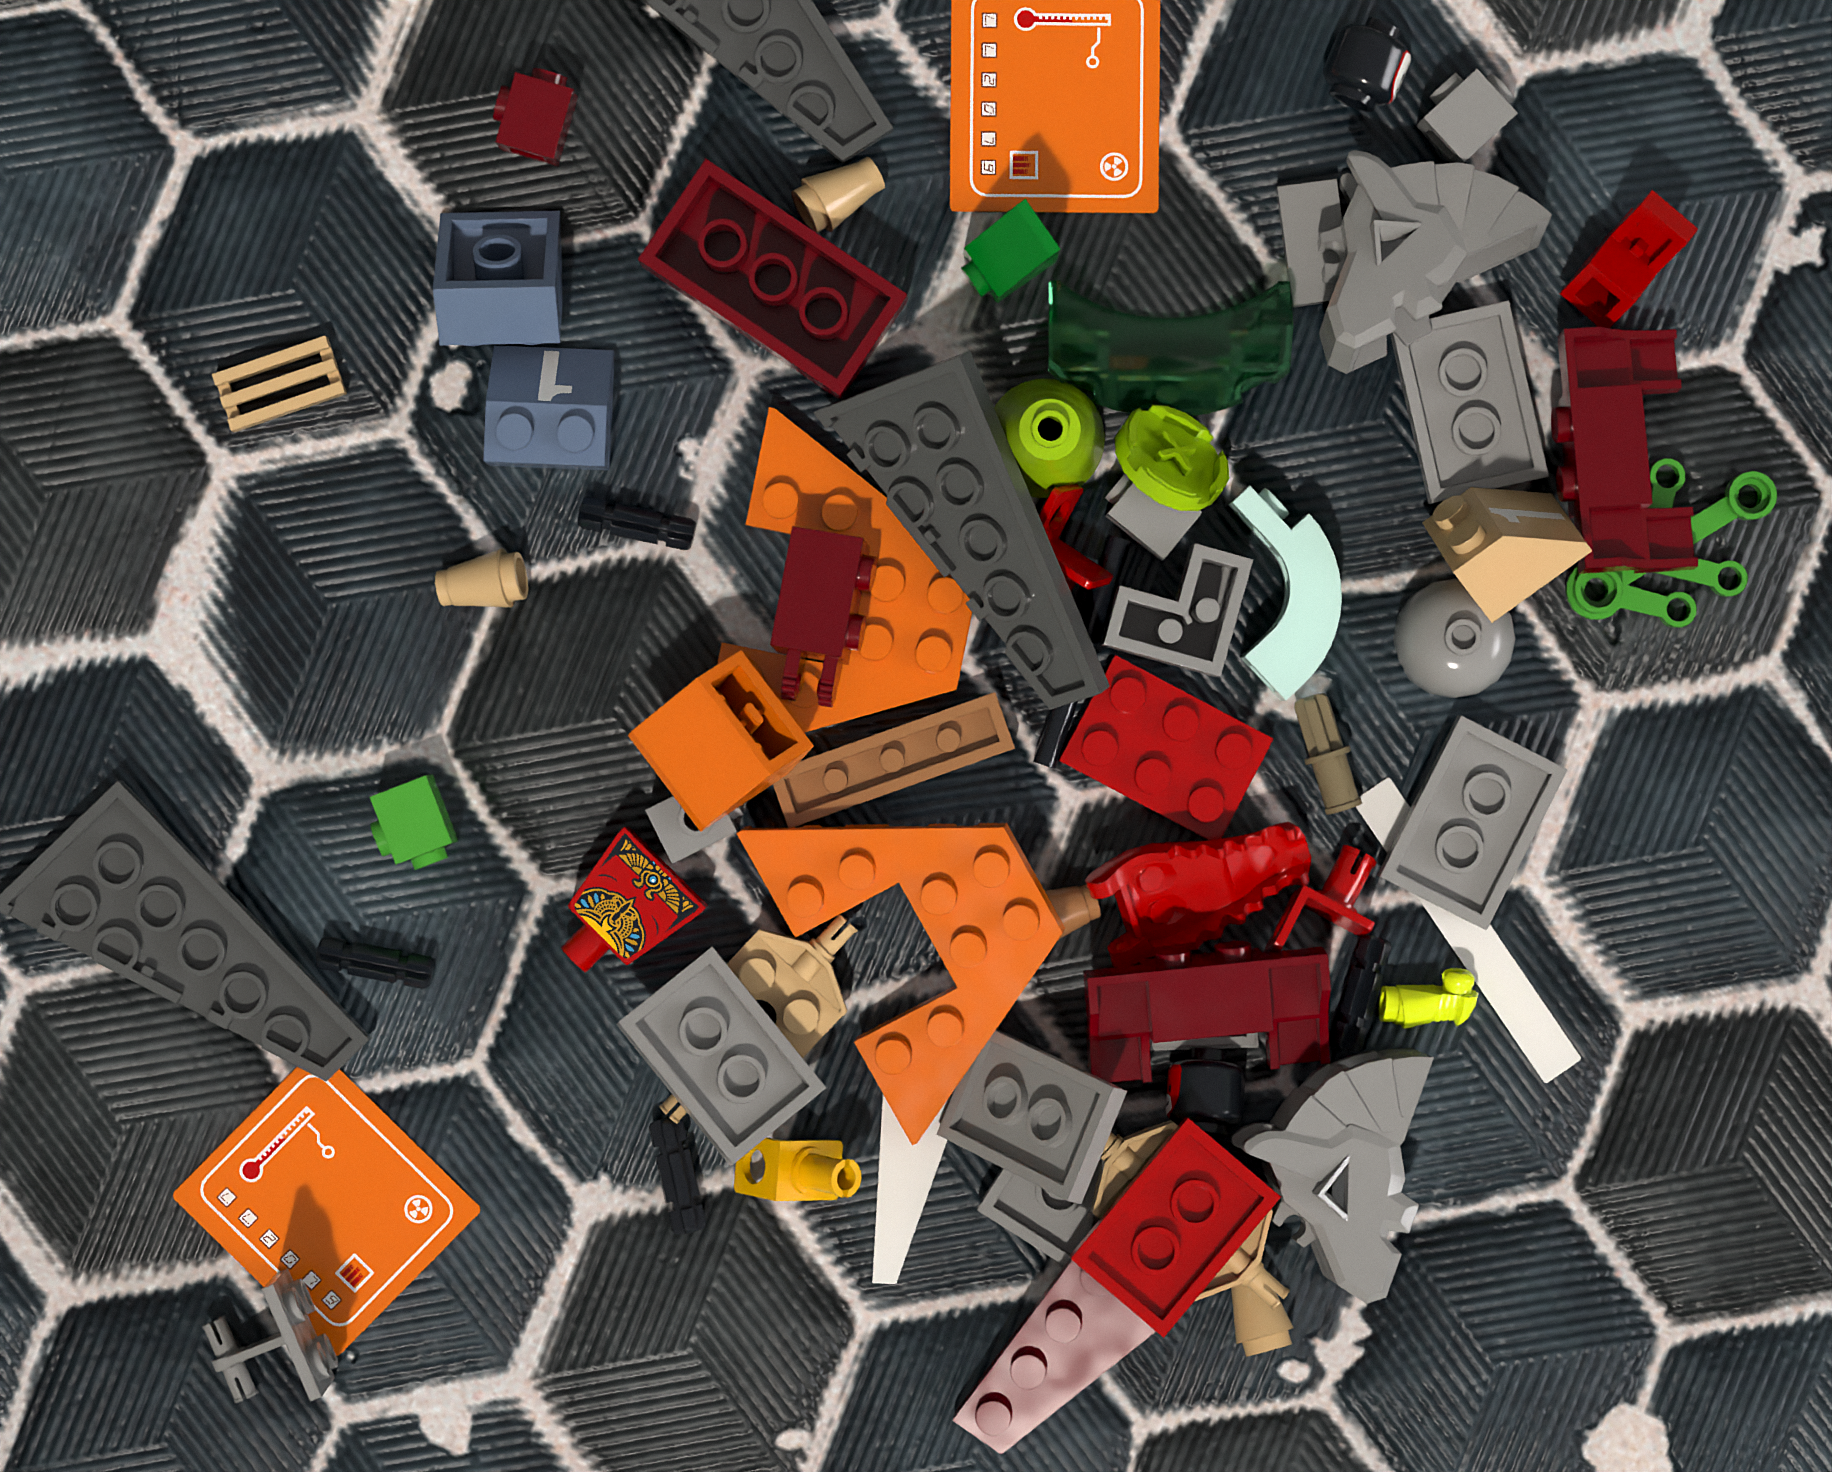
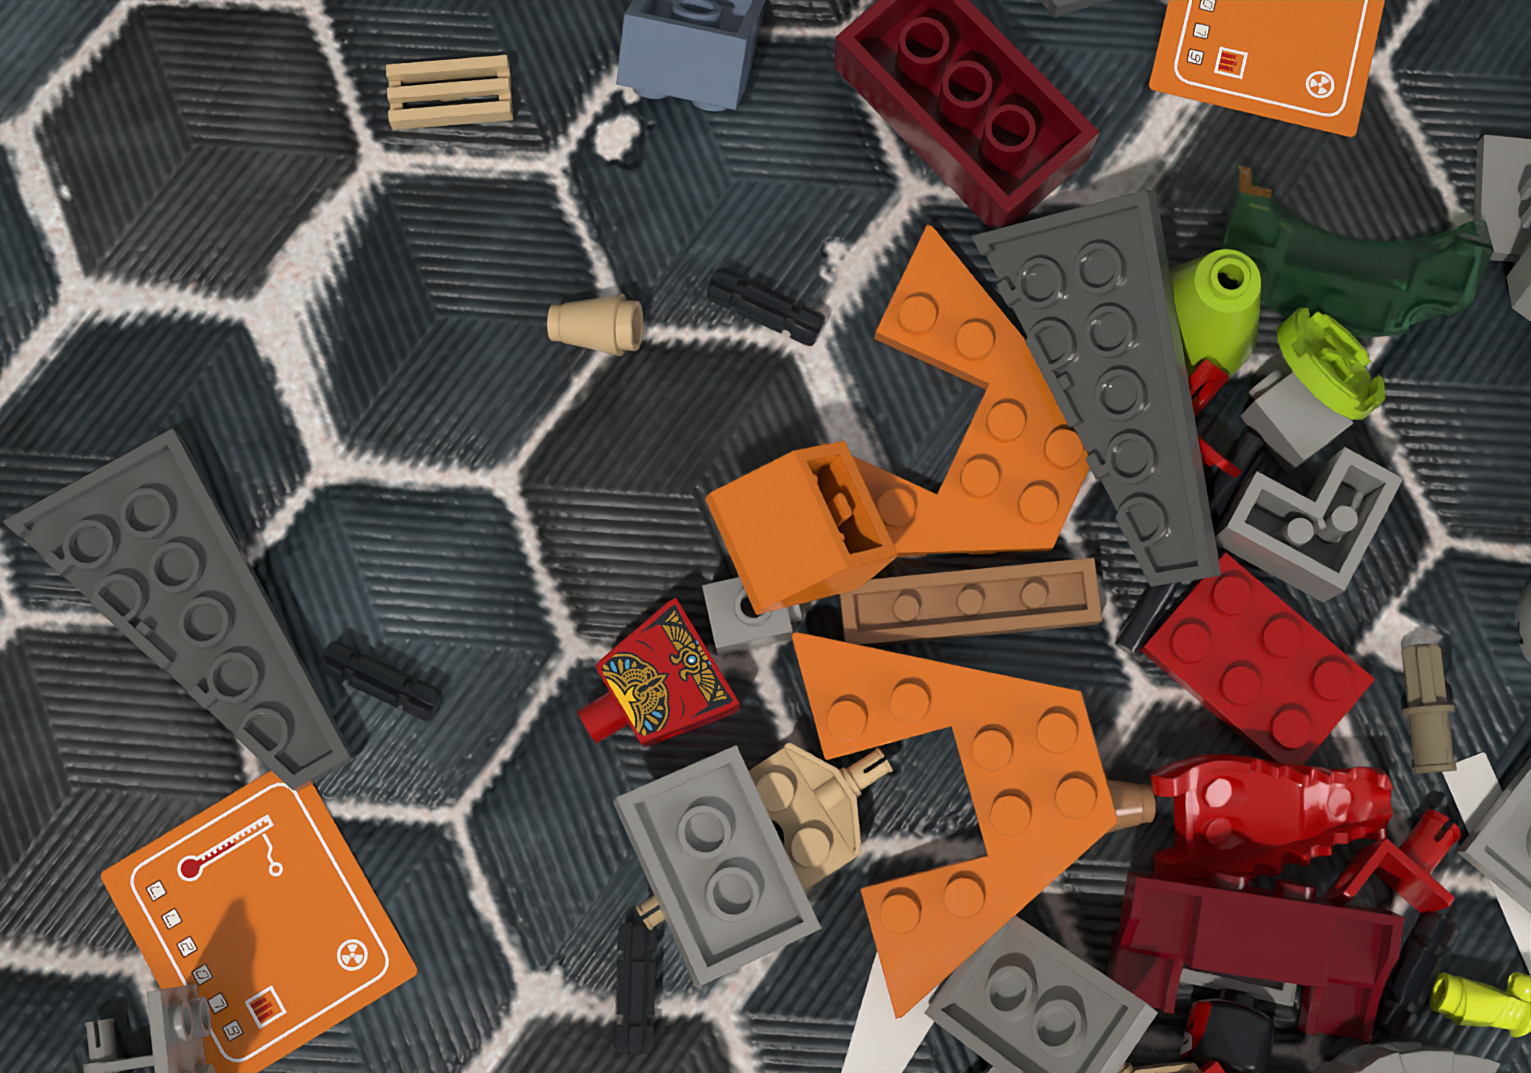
camera: 15 degrees right, 10 degrees down
(412, 823) = (459, 544): bright green brick -> none
(549, 408) = (706, 178): sand blue slope -> none
(799, 1171) = (767, 1015): yellow bracket -> none
(821, 607) = (936, 421): dark red hinge -> none
(835, 194) = (1048, 37): tan cone -> none
(1009, 253) = (1211, 124): green slope -> none
(1312, 594) = (1444, 533): light aqua arch -> none

